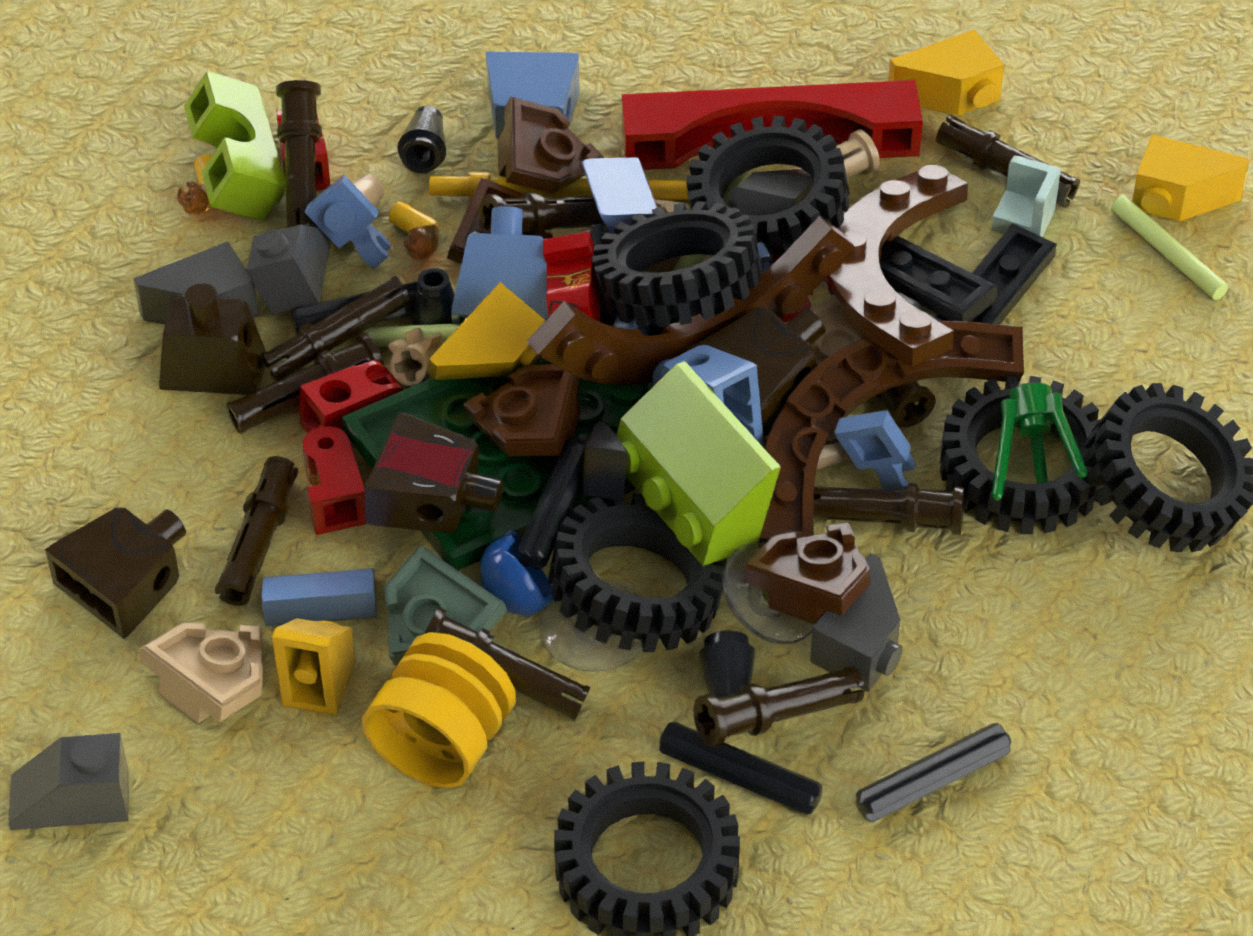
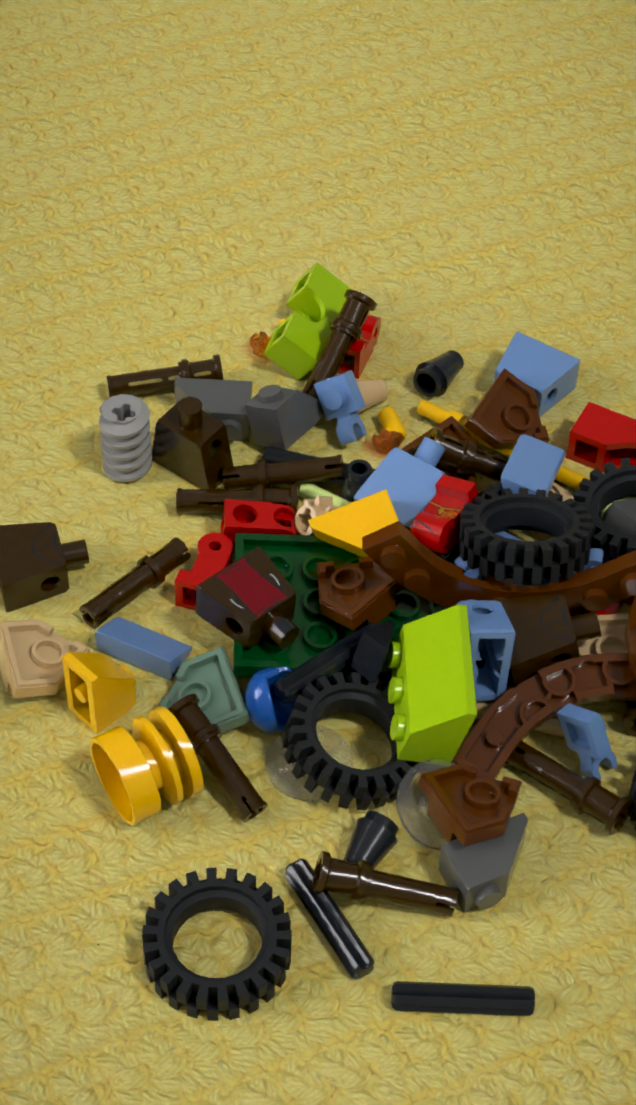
camera: 30 degrees right, 0 degrees up
(61, 319) = (119, 383): none -> dark brown pin
(130, 373) = (125, 438): none -> light grey piece

